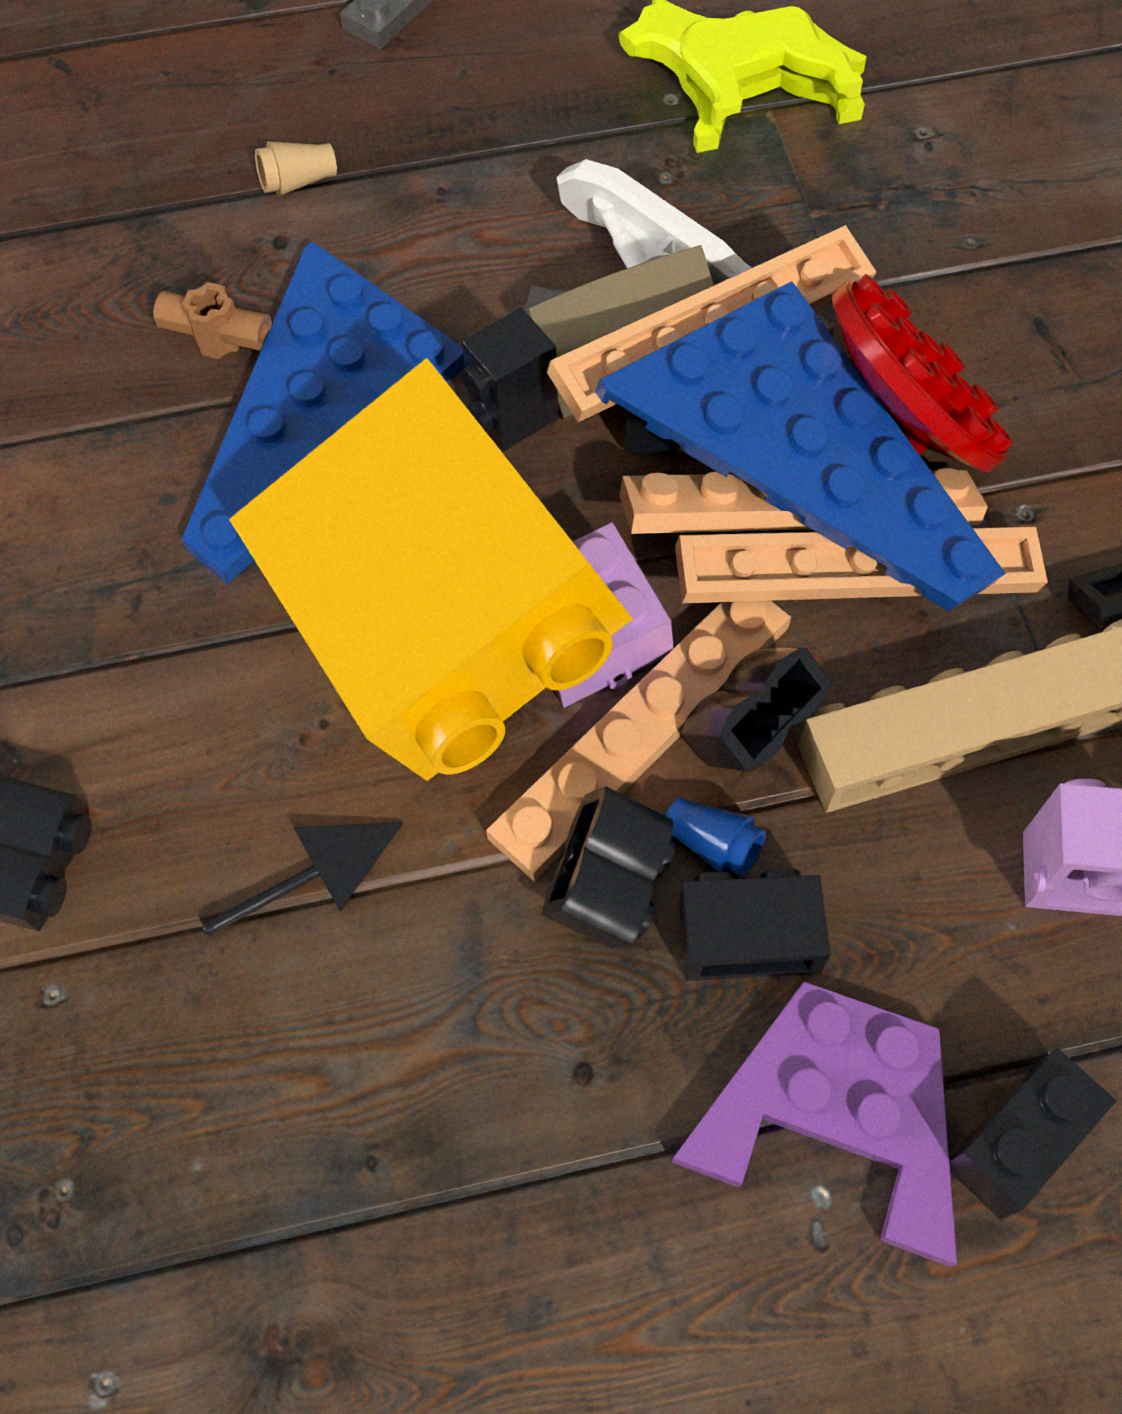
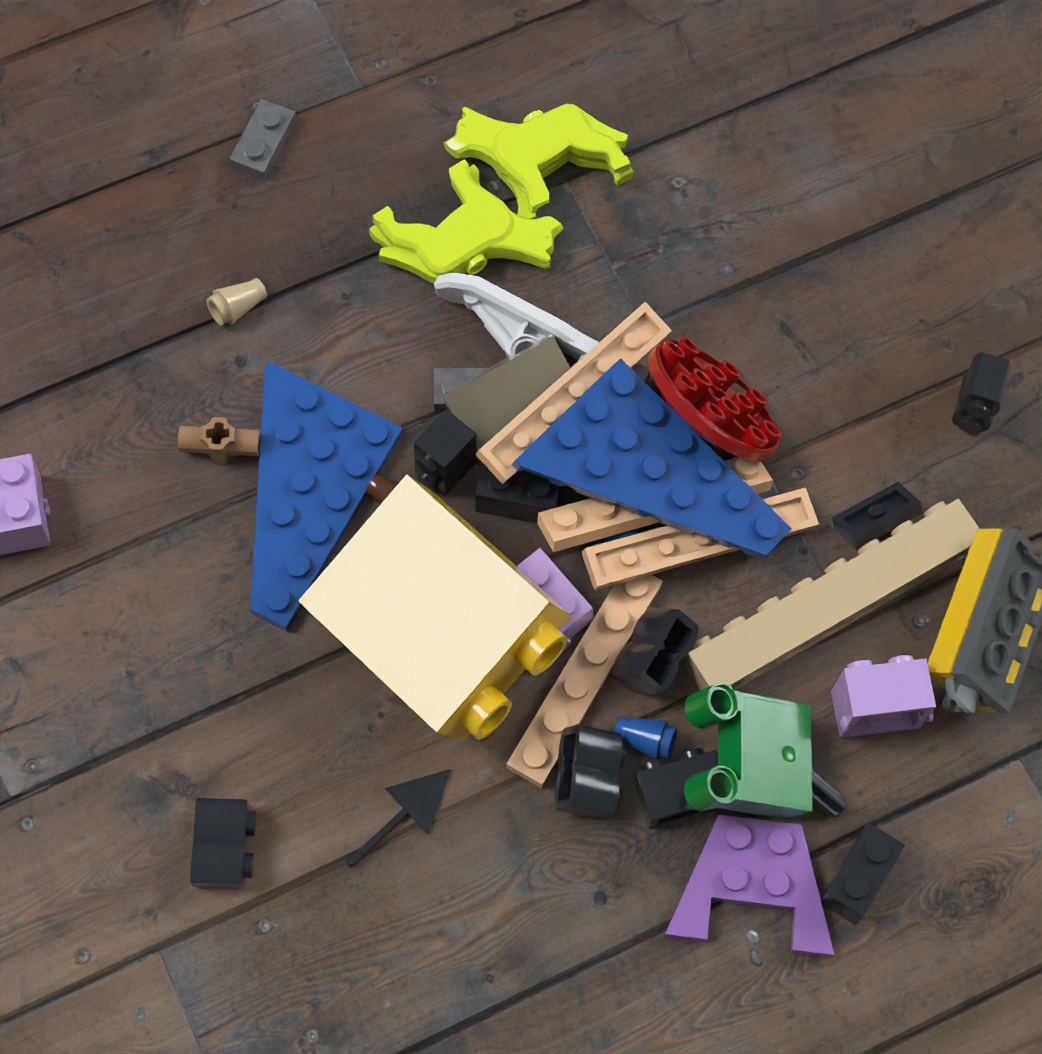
camera: 20 degrees left, 5 degrees up
(598, 452) = (517, 498): none -> black piece
(635, 132) = (468, 236): none -> neon yellow animal
(891, 899) = (760, 756): none -> piece

